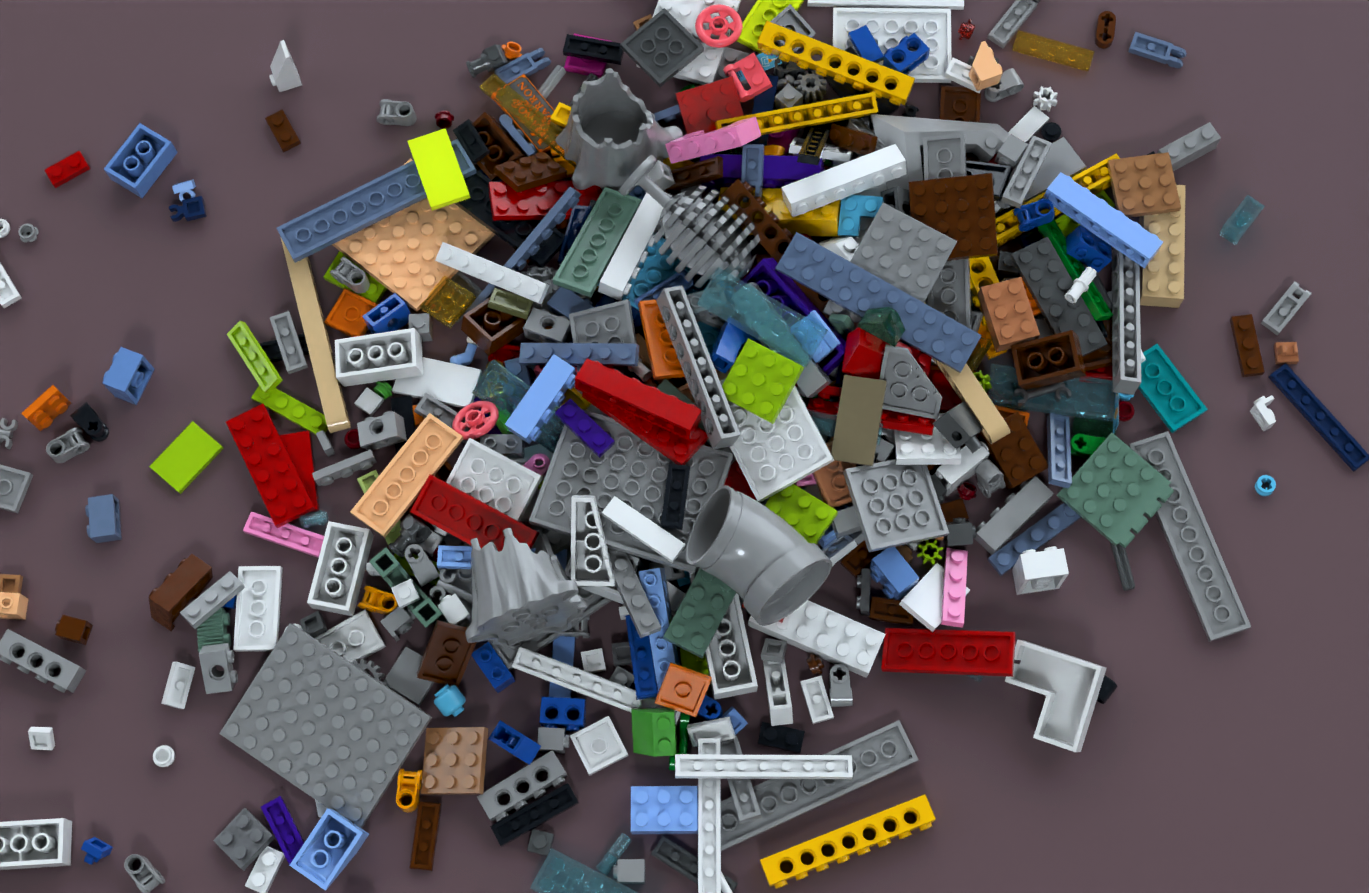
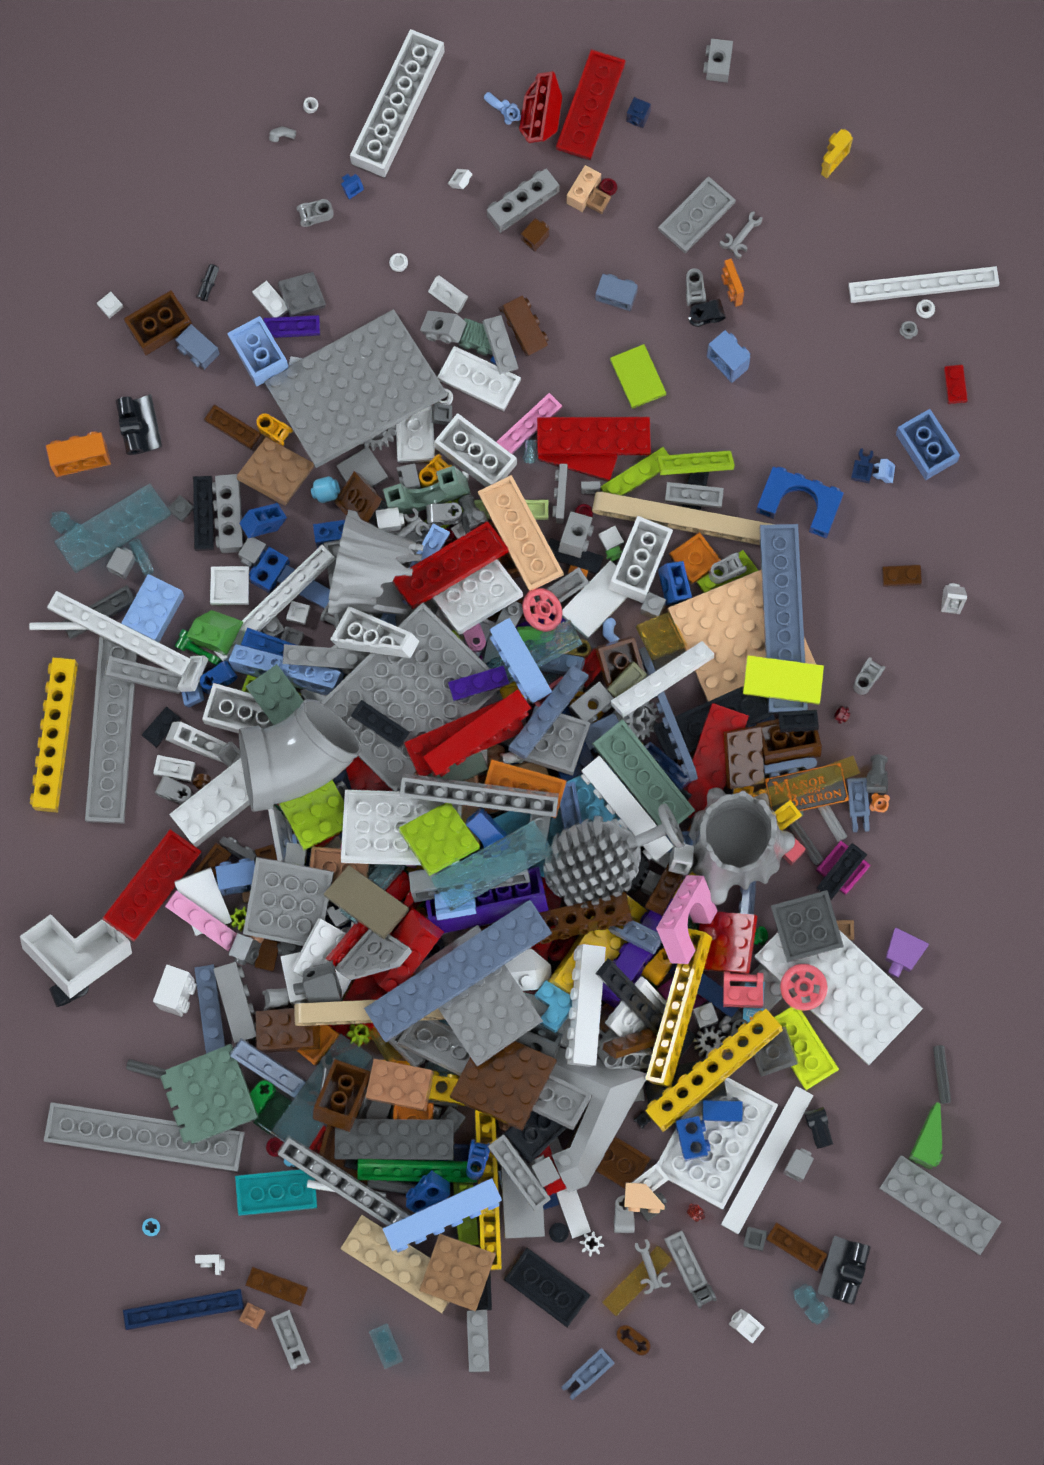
camera: 115 degrees right, 5 degrees up
(238, 225) = (782, 482): none -> blue arch
(405, 593) = (425, 491): white plate -> none
(643, 529) = (366, 686): white tile -> none
(683, 689) = (230, 661): orange plate -> none
(763, 766) = (140, 695): white plate -> none
(842, 324) = (454, 938): sand green tile -> none
(884, 324) = (431, 959): clear green slope -> none
(967, 491) = (276, 978): dark red plate -> none
(1044, 32) = (654, 1282): none -> light grey bar
(1080, 285) = (393, 1160): white axle -> none
(1103, 119) = (547, 1287): none -> black tile

